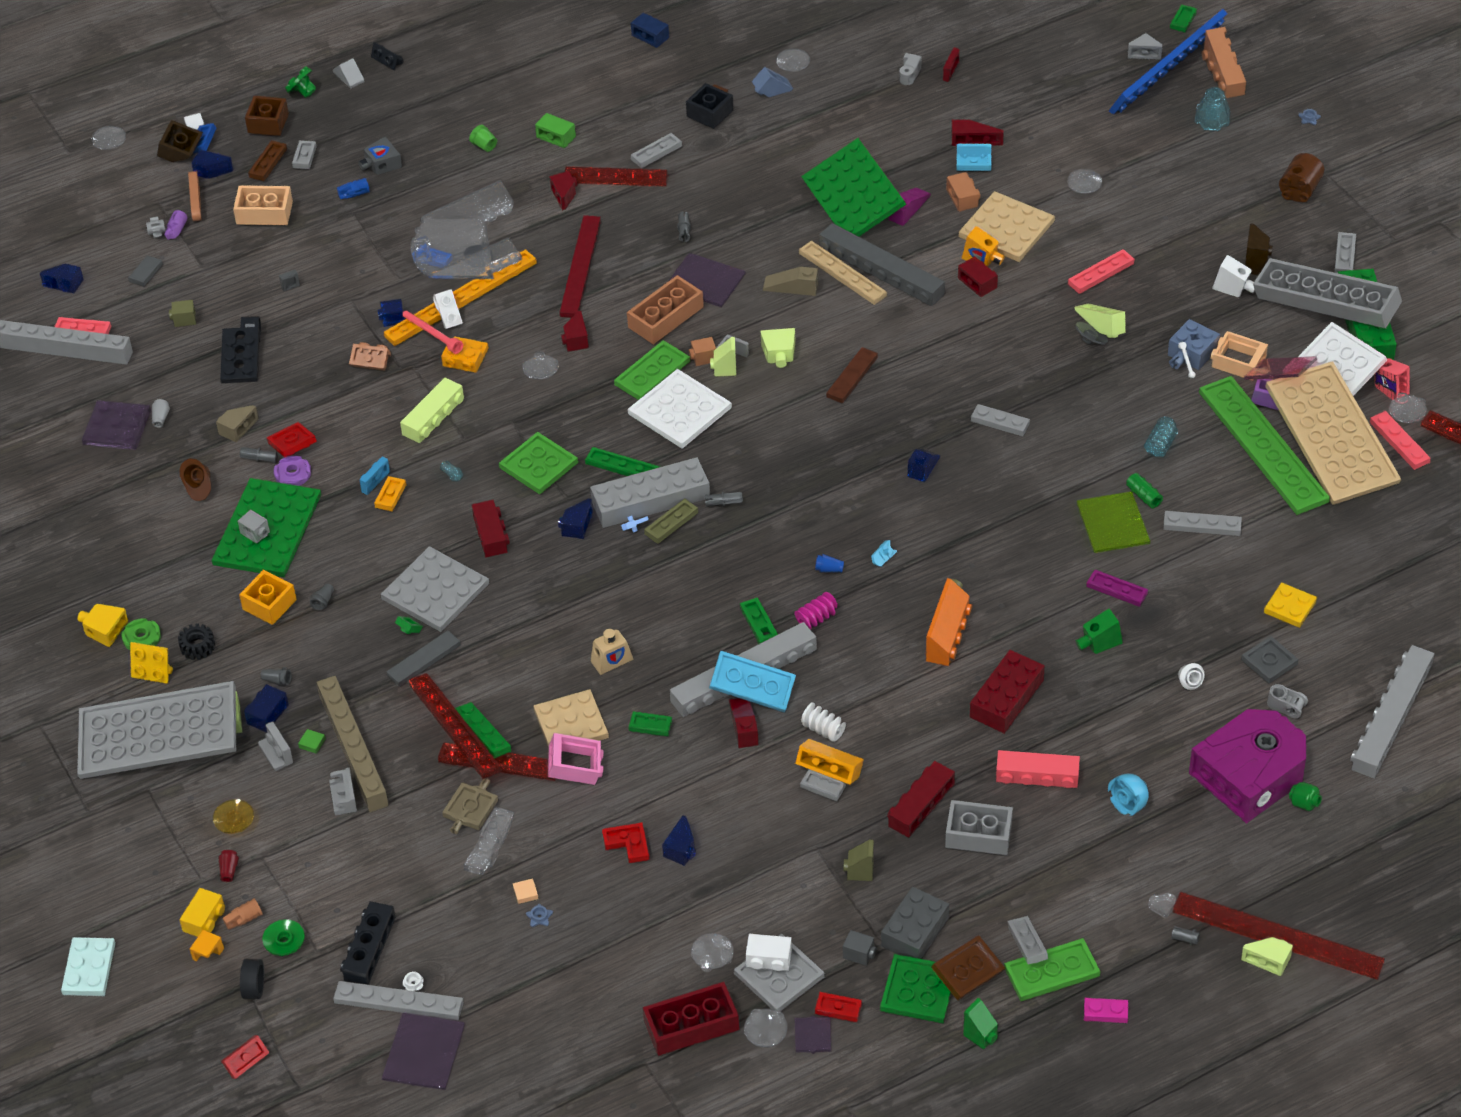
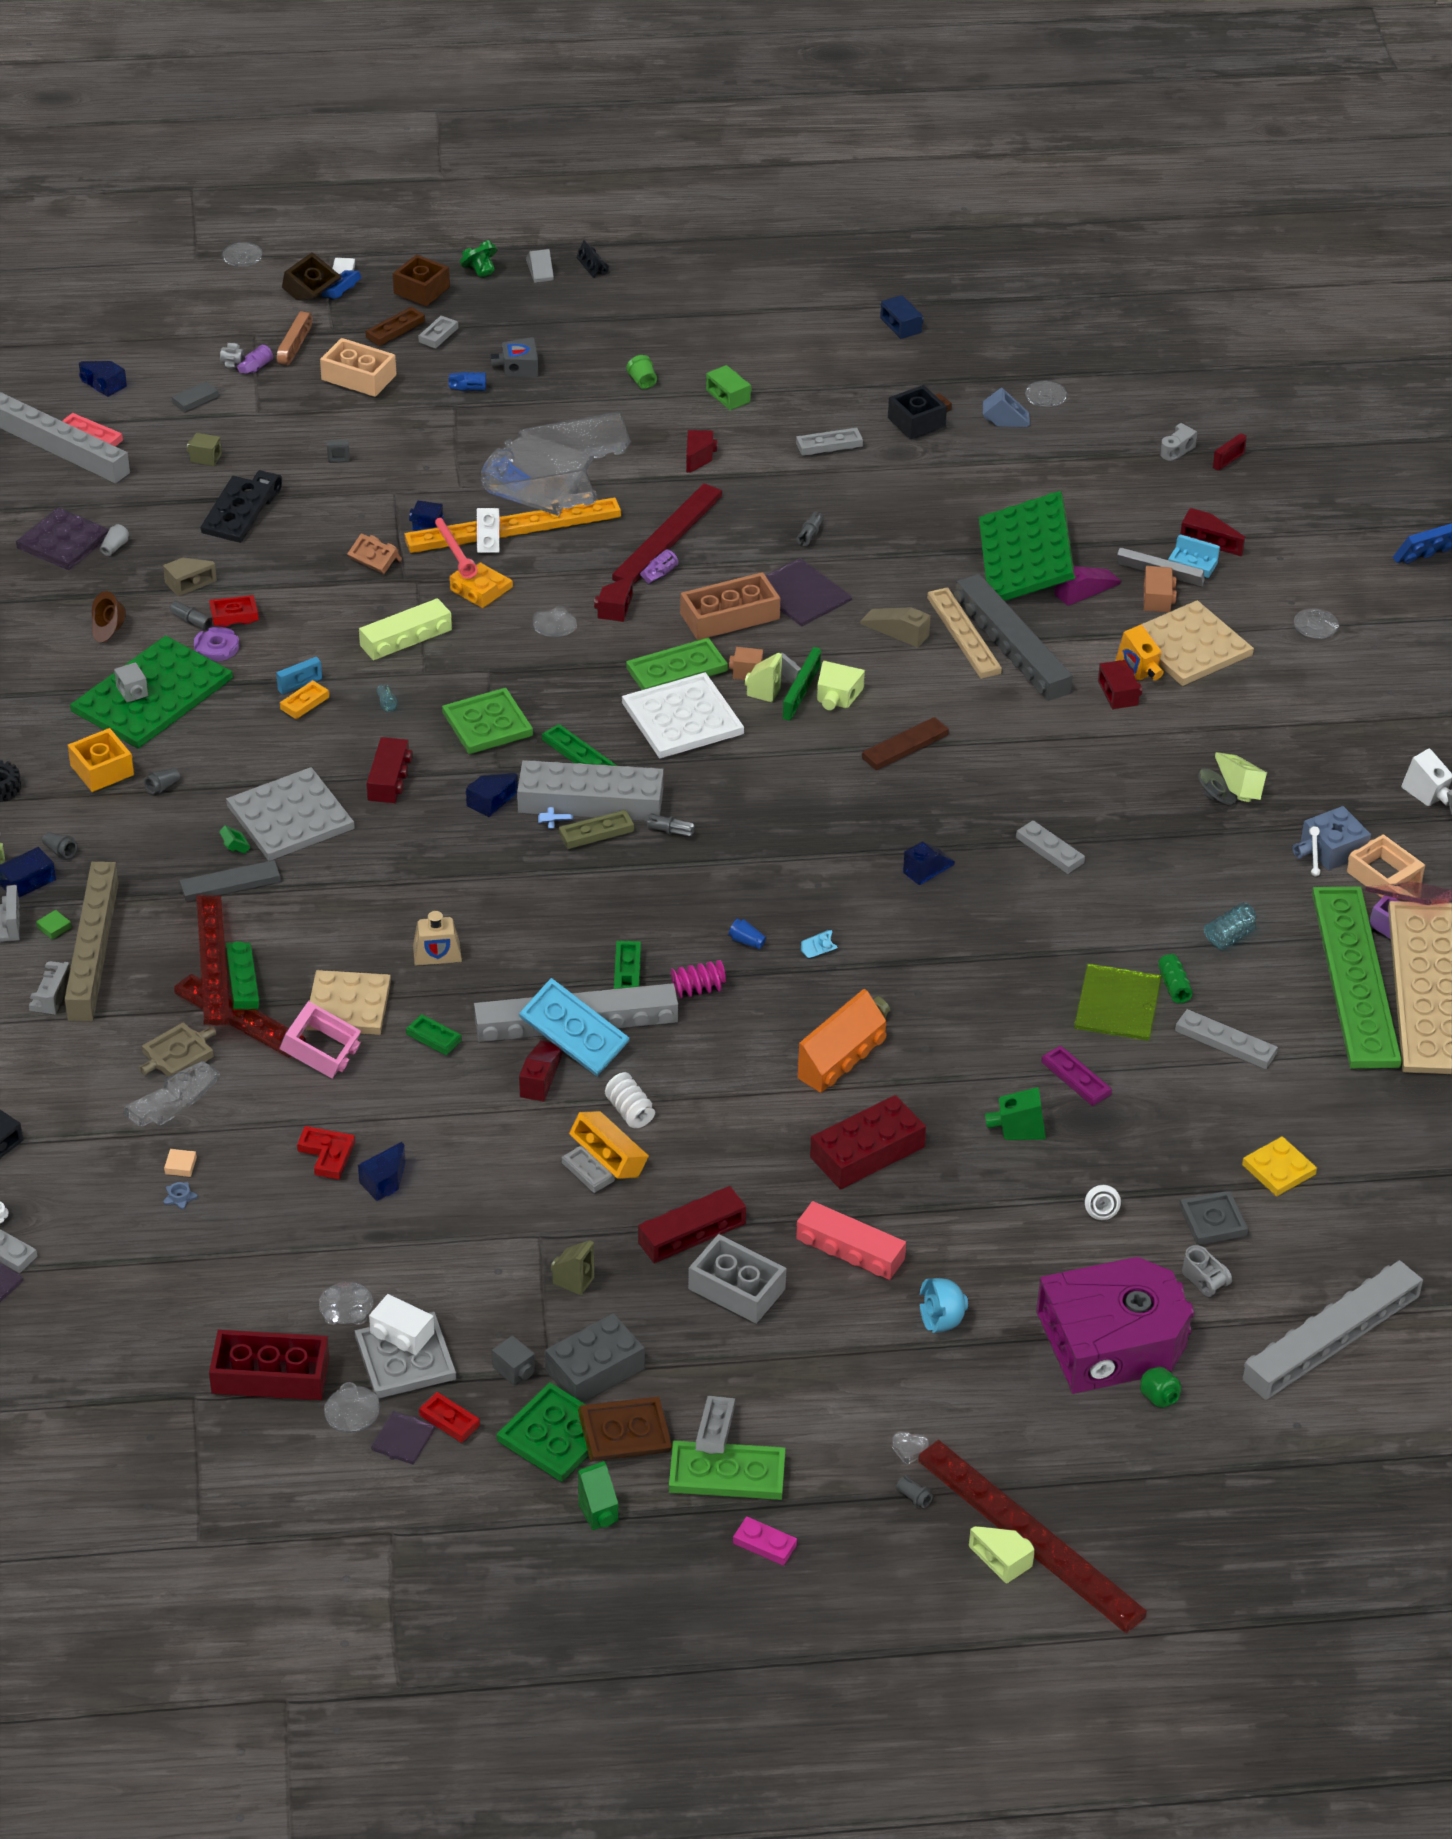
camera: 20 degrees right, 5 degrees down
(211, 164) = (332, 312): clear blue slope -> none
(591, 294) = (656, 569): none -> medium lavender hinge
(619, 176) = (770, 455): clear red plate -> none
(752, 353) = (801, 683): none -> green tile
(943, 173) = (1180, 571): none -> light grey tile
(1101, 271) = (1272, 724): coral plate -> none

